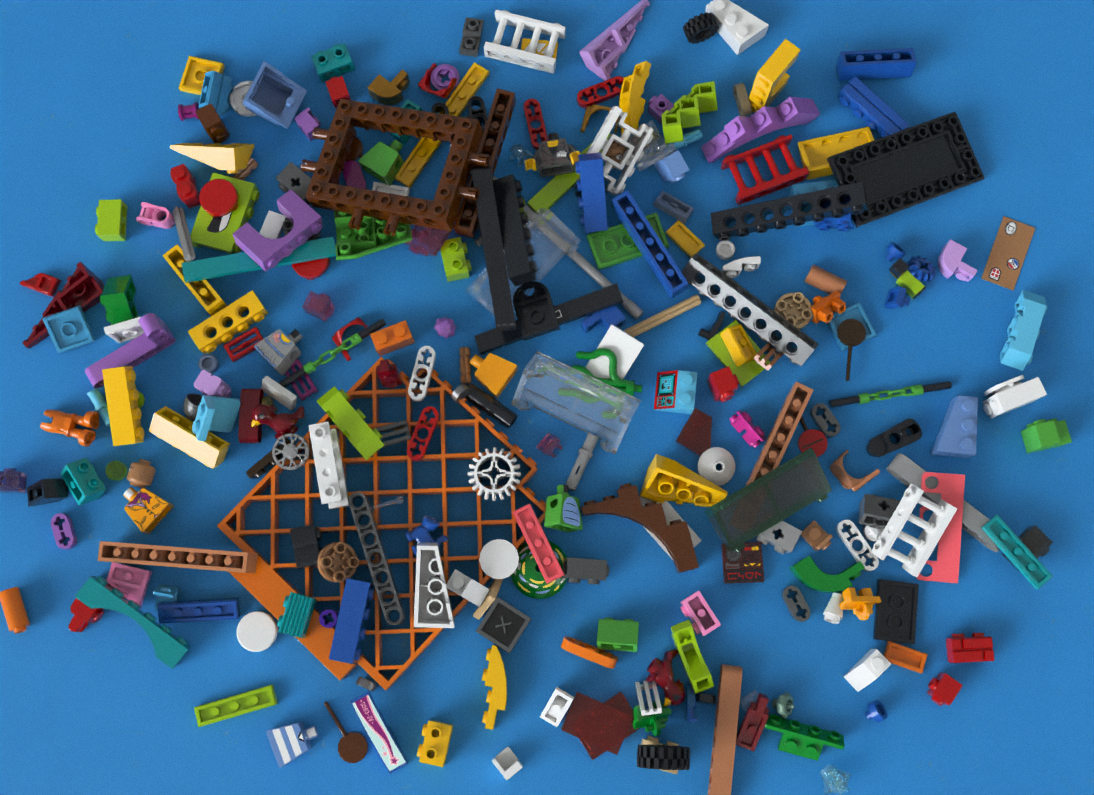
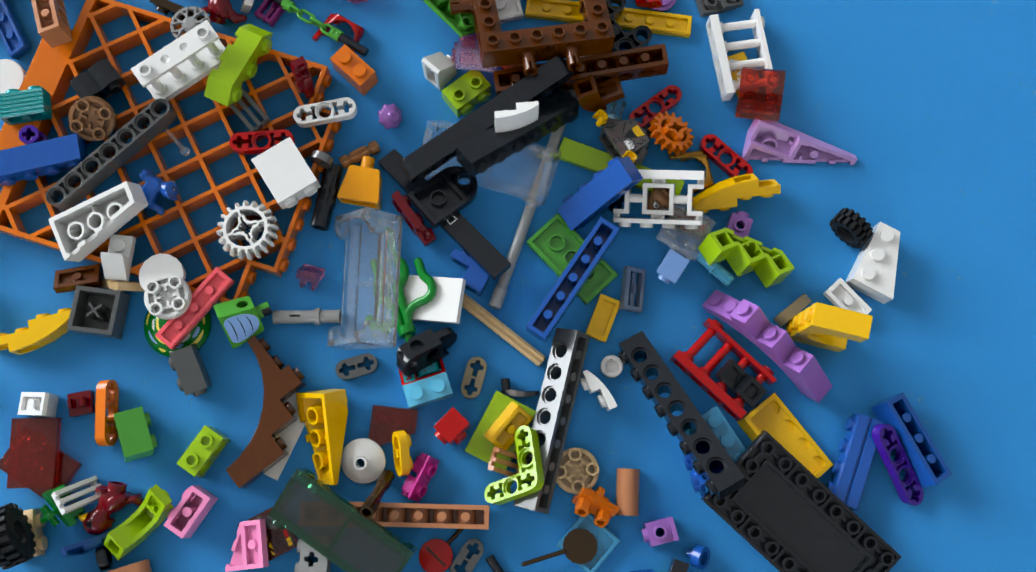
camera: 60 degrees right, 0 degrees up
(426, 271) = (438, 69): none -> white slope
(463, 422) = (286, 173): none -> white brick
(464, 633) = (88, 276): none -> reddish brown plate
(507, 218) = (514, 119): none -> white slope
(509, 159) = (596, 95): none -> reddish brown brick
(520, 559) = (167, 296): none -> white tile
(542, 345) = (412, 219): none -> dark red hinge
(564, 121) = (671, 133): none -> orange gear
(567, 41) = (760, 94): none -> clear red bracket
(570, 672) = (81, 403): none -> dark red tile
(644, 441) = (358, 372): none -> dark grey beam
(652, 380) = (424, 350): none -> black piece
(655, 585) = (203, 451): none -> lime brick
(691, 351) = (468, 376): none -> dark tan beam
(724, 432) = (401, 455): none -> yellow plate
(748, 578) = (249, 547): none -> bright pink wing
(751, 58) = (844, 297): none -> white plate
(757, 463) = (373, 501): none -> dark brown piece
(781, 343) = (525, 474): none -> lime beam
(782, 161) = (741, 383): none -> black slope
(865, 262) = (668, 526): none -> medium lavender brick
(869, 81) = (899, 463): none -> dark purple beam

